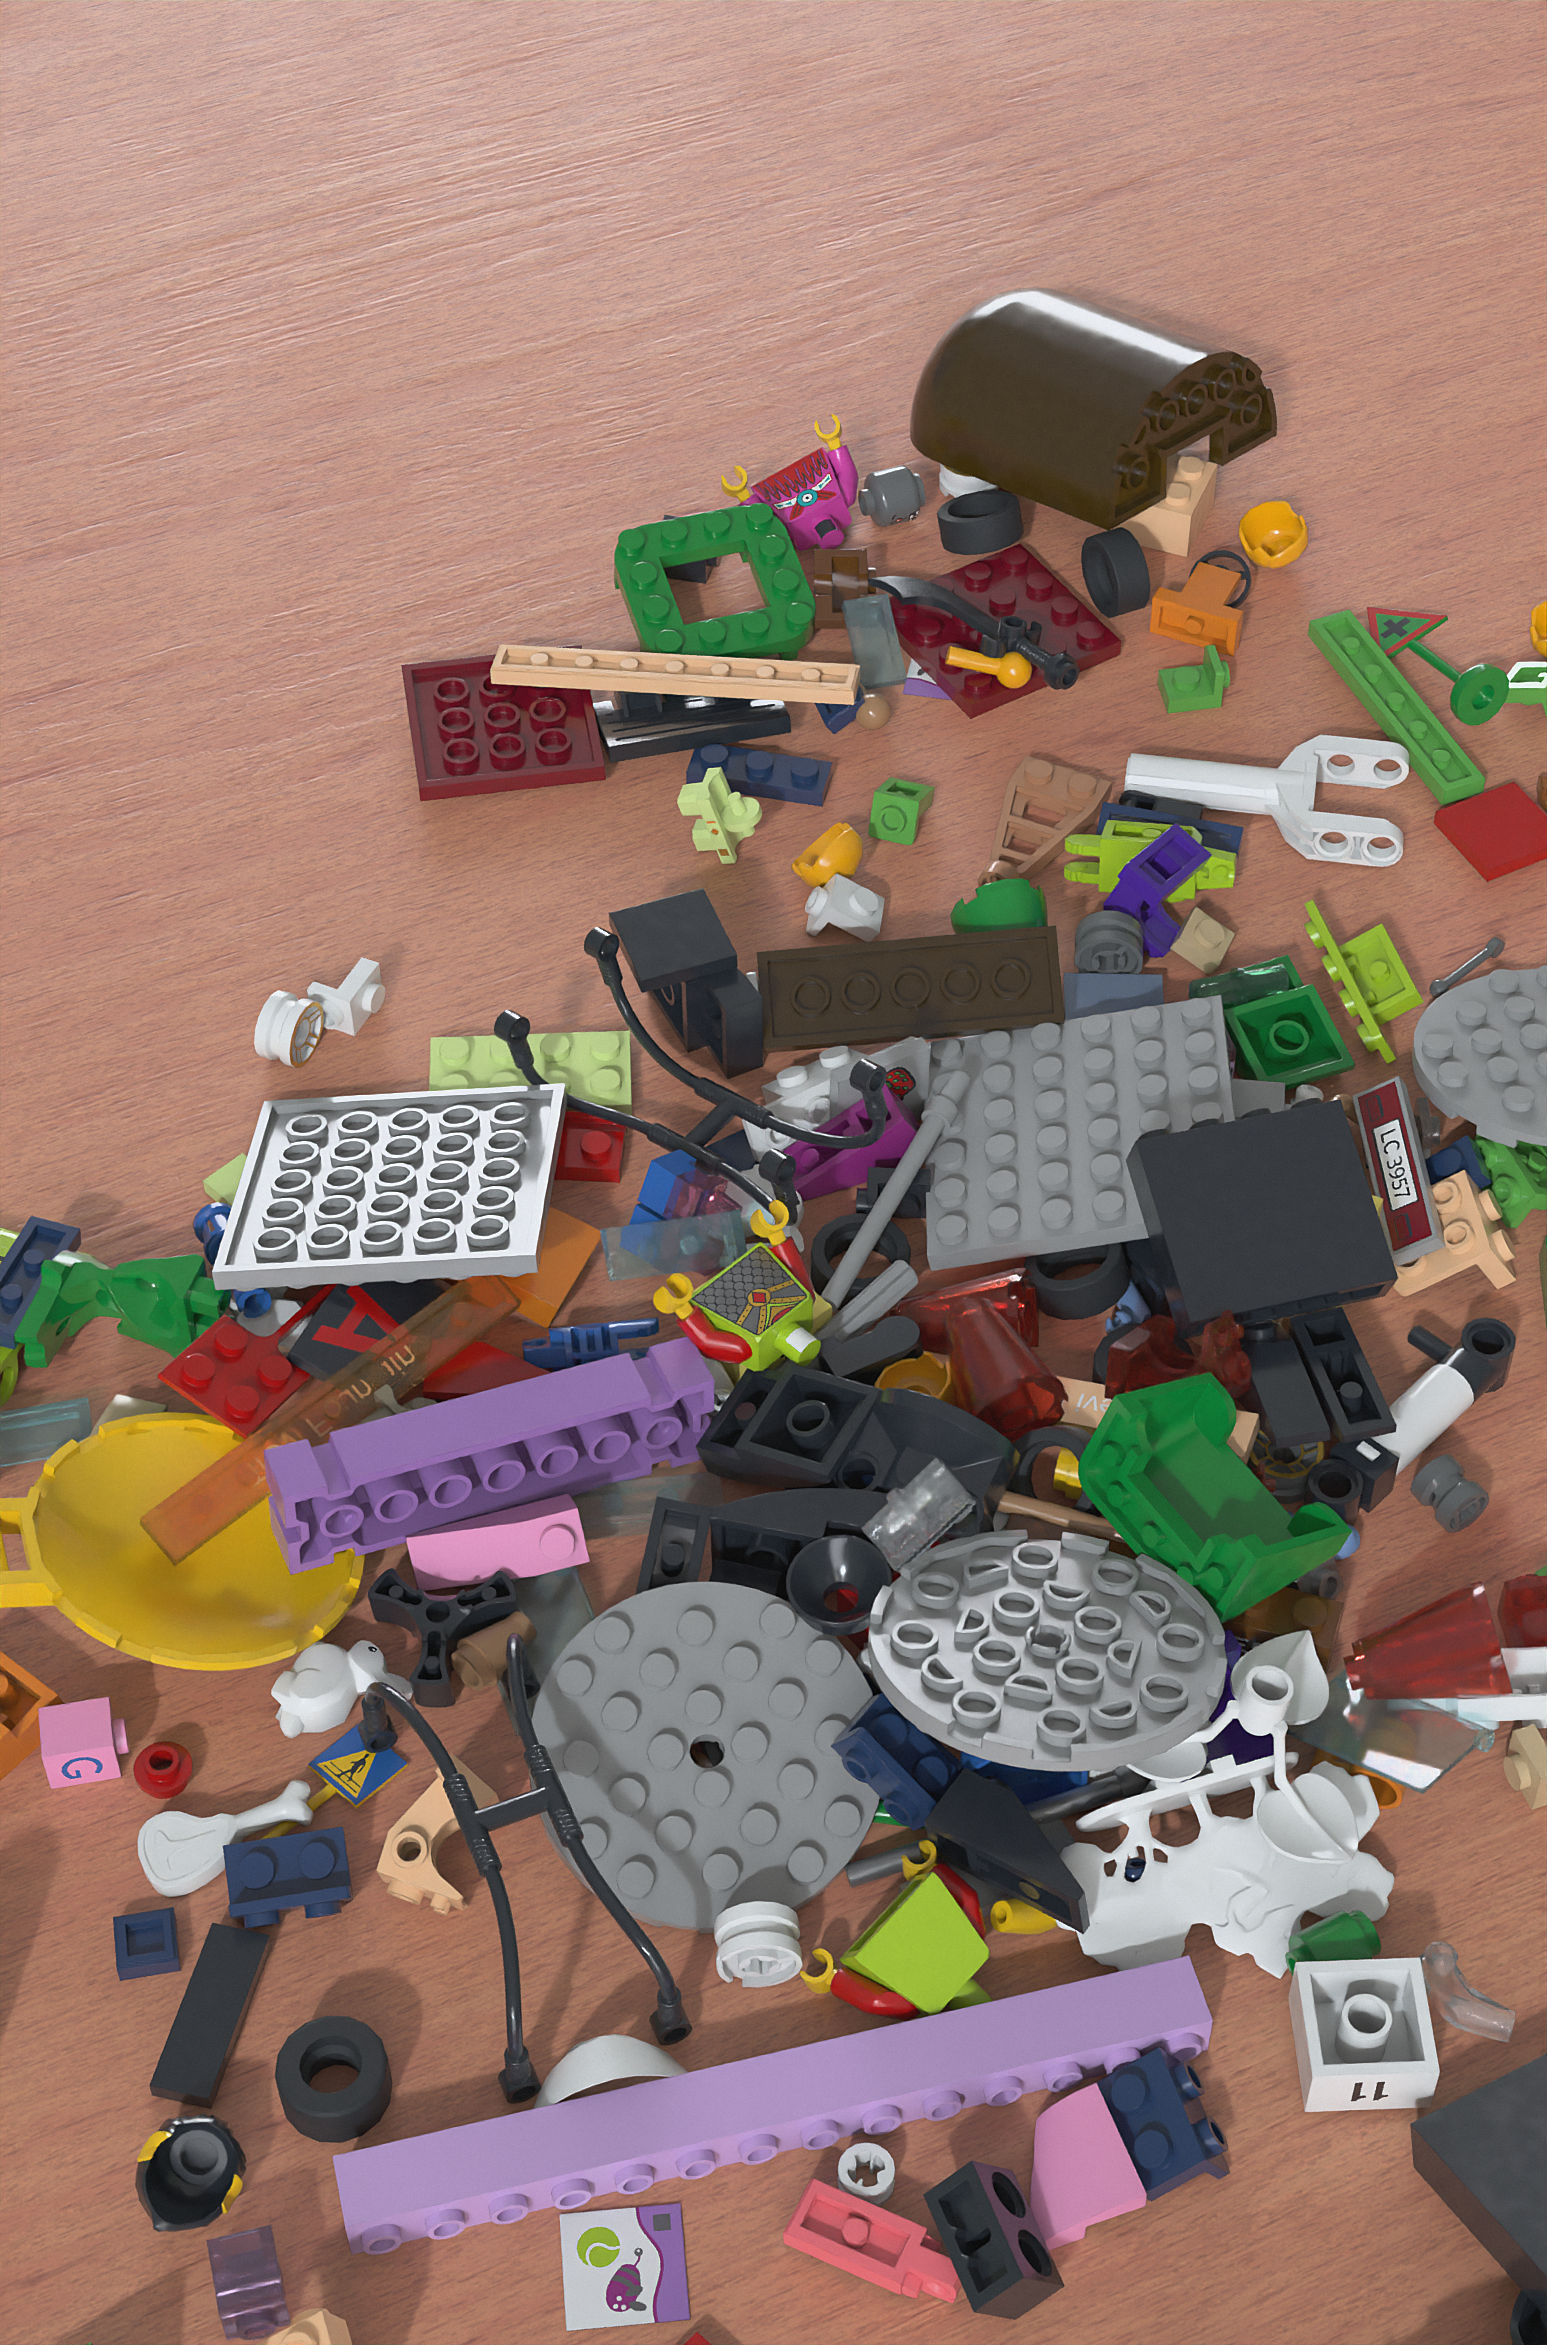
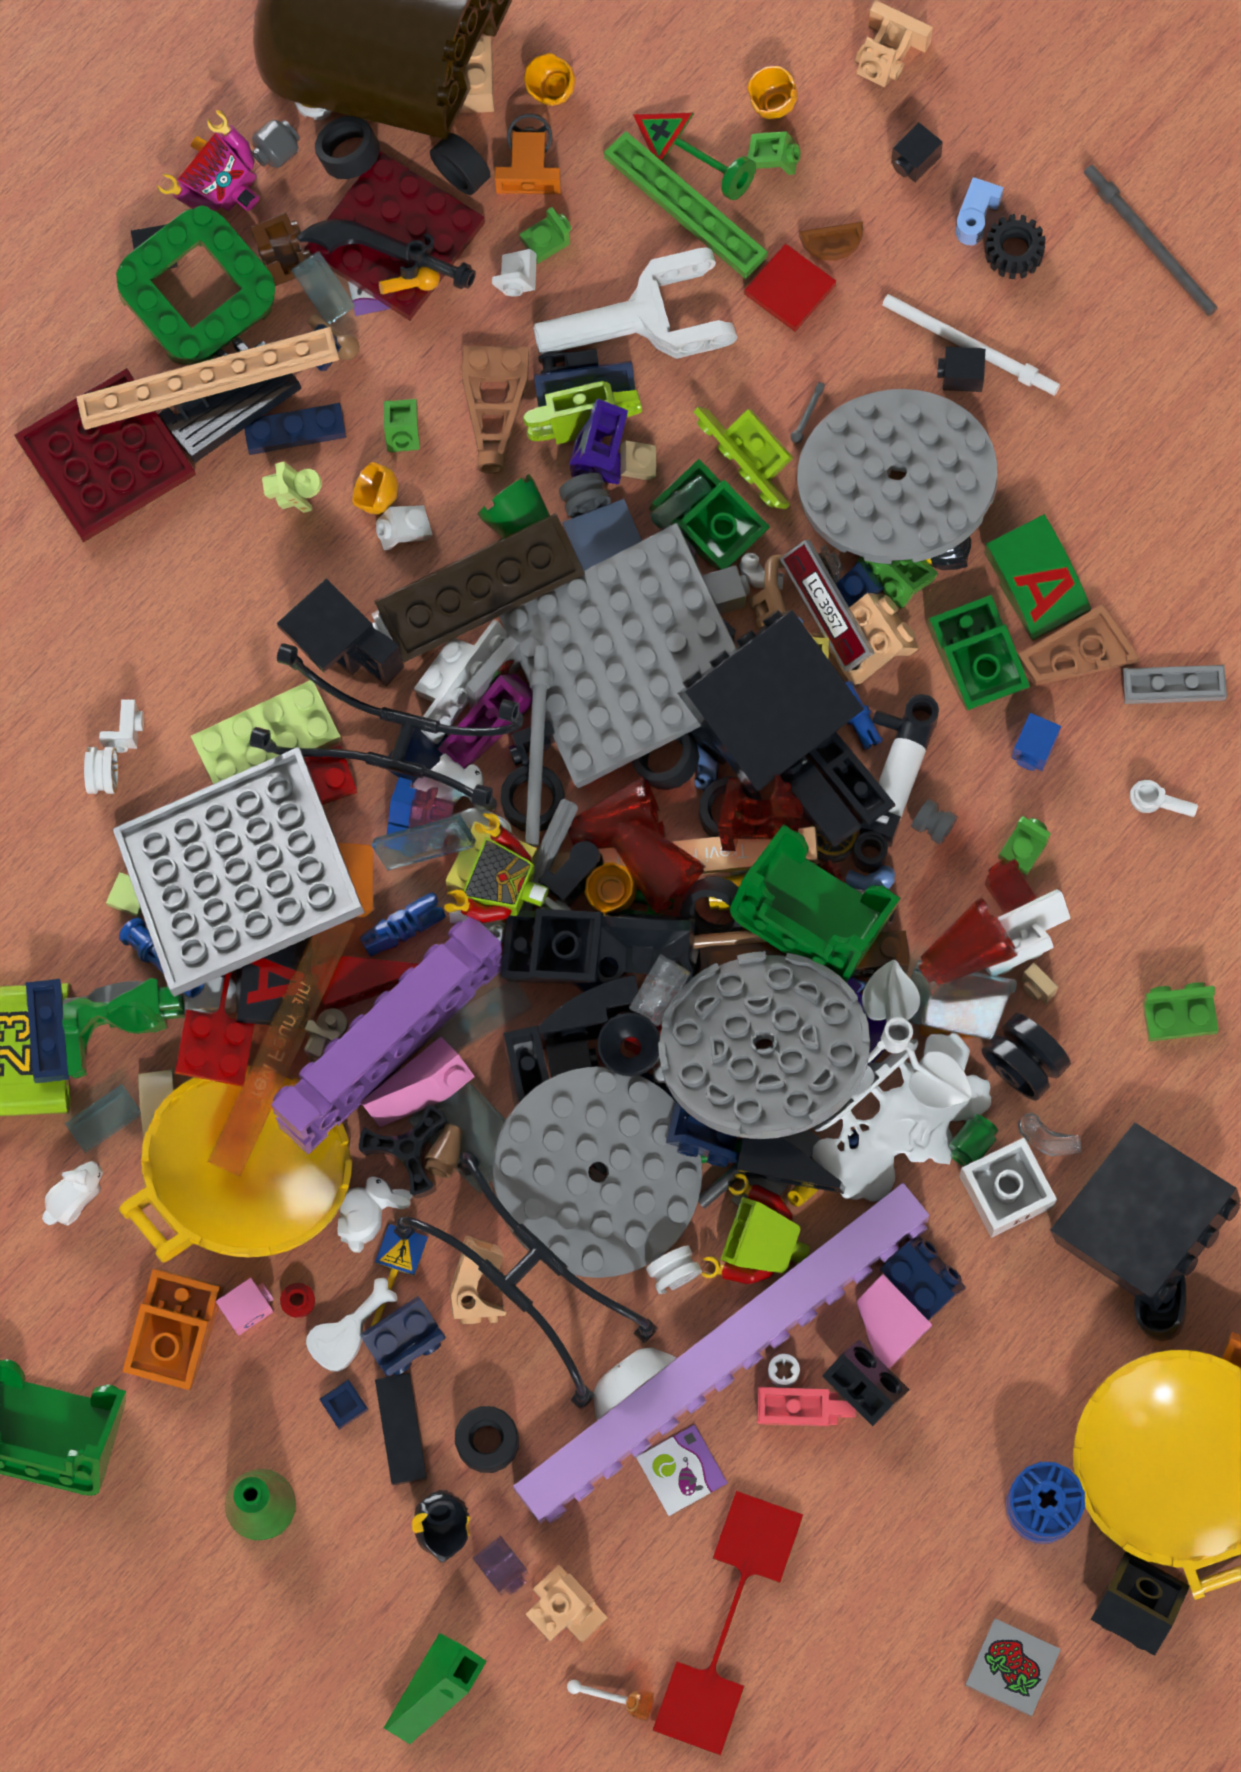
camera: 20 degrees left, 25 degrees up
(1133, 705) = (517, 273): none -> white bracket
(1389, 1329) = (863, 724): none -> blue pin
(1470, 1848) = (1026, 1056): none -> black wheel

